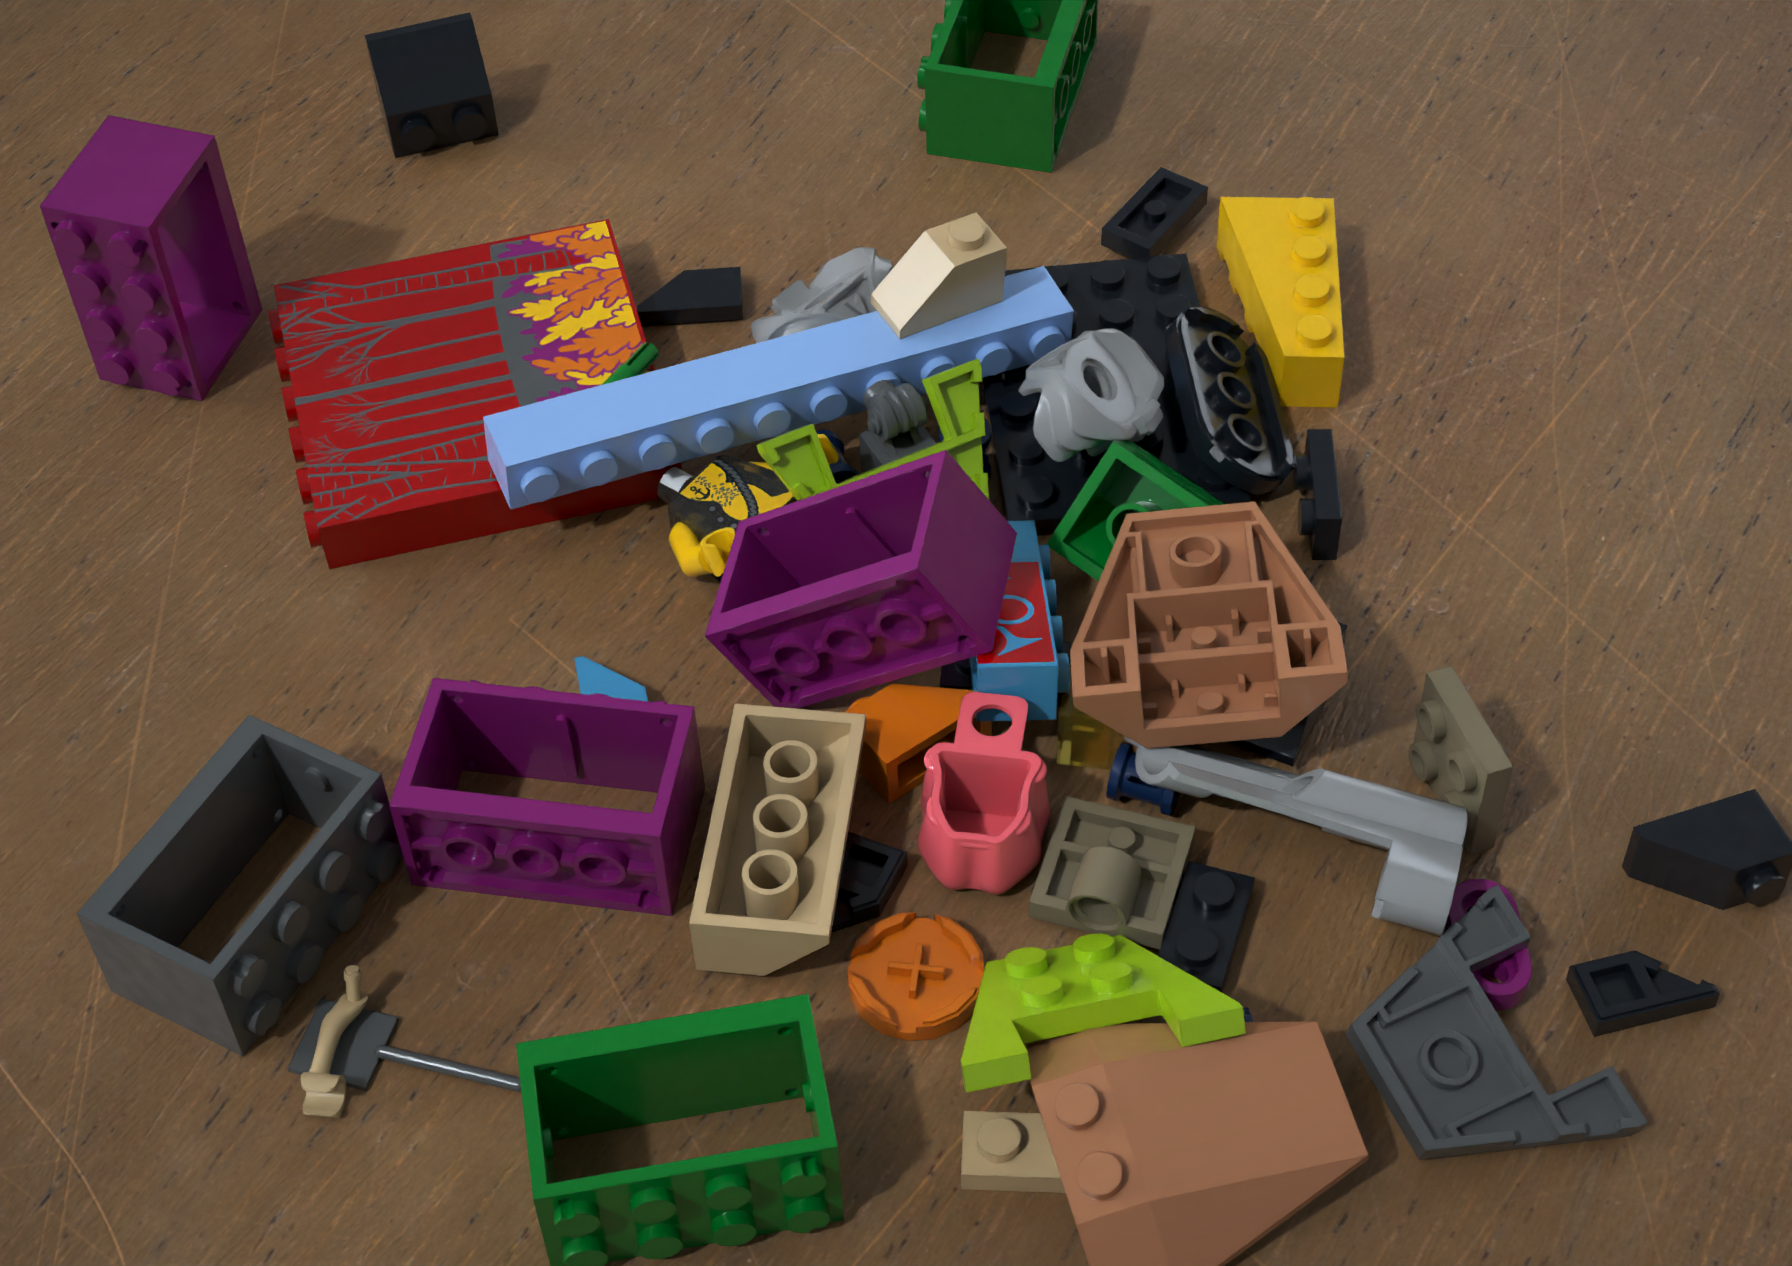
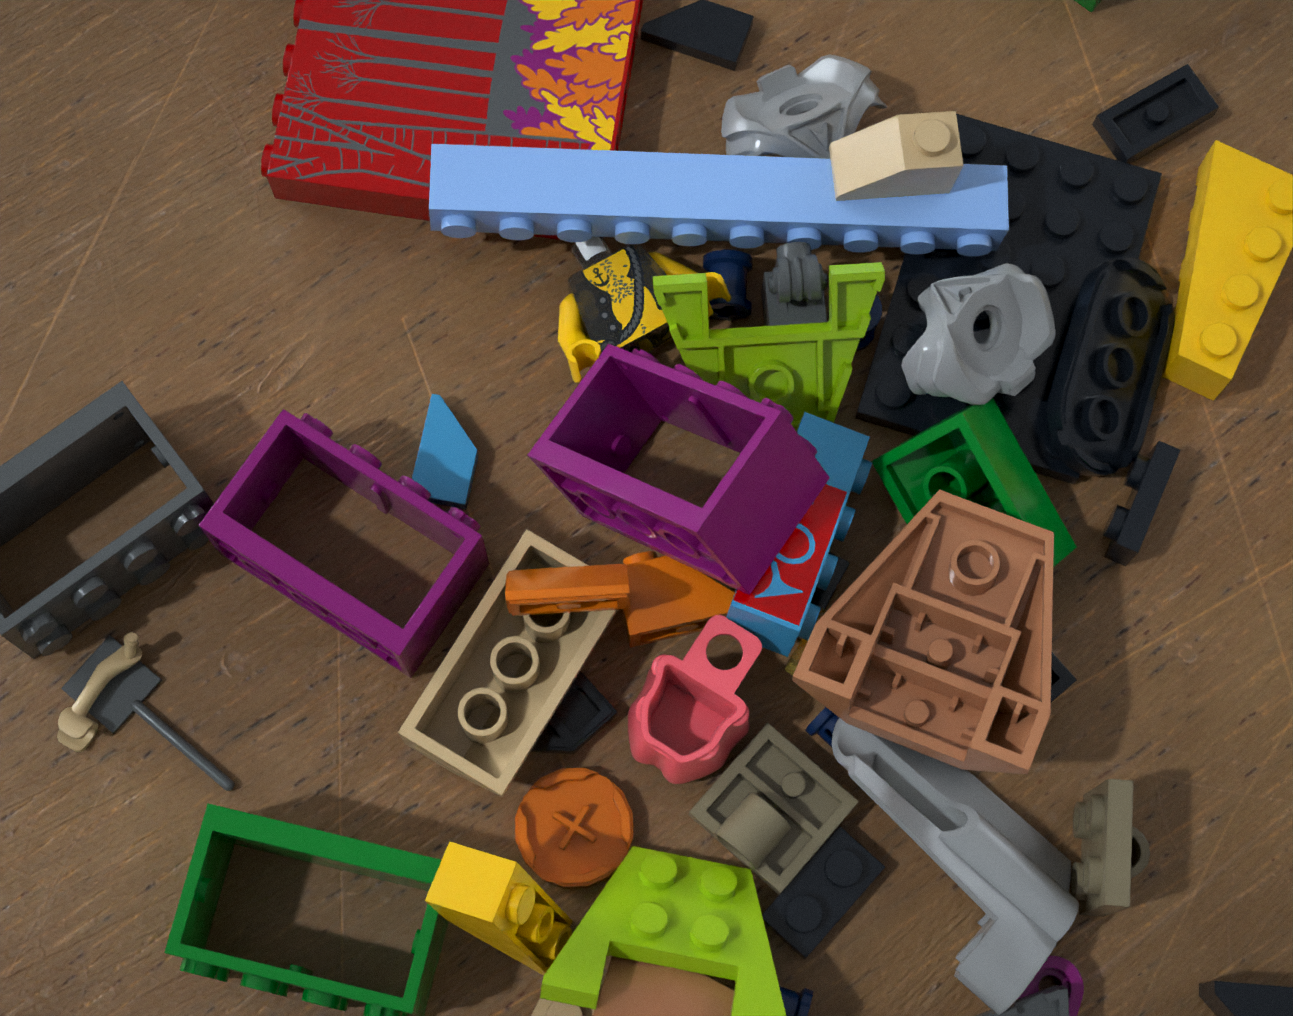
camera: 20 degrees right, 25 degrees up
(636, 364) = (590, 121): green pin -> none
(807, 730) = (567, 589): none -> orange slope
(874, 1024) = (499, 906): none -> yellow slope

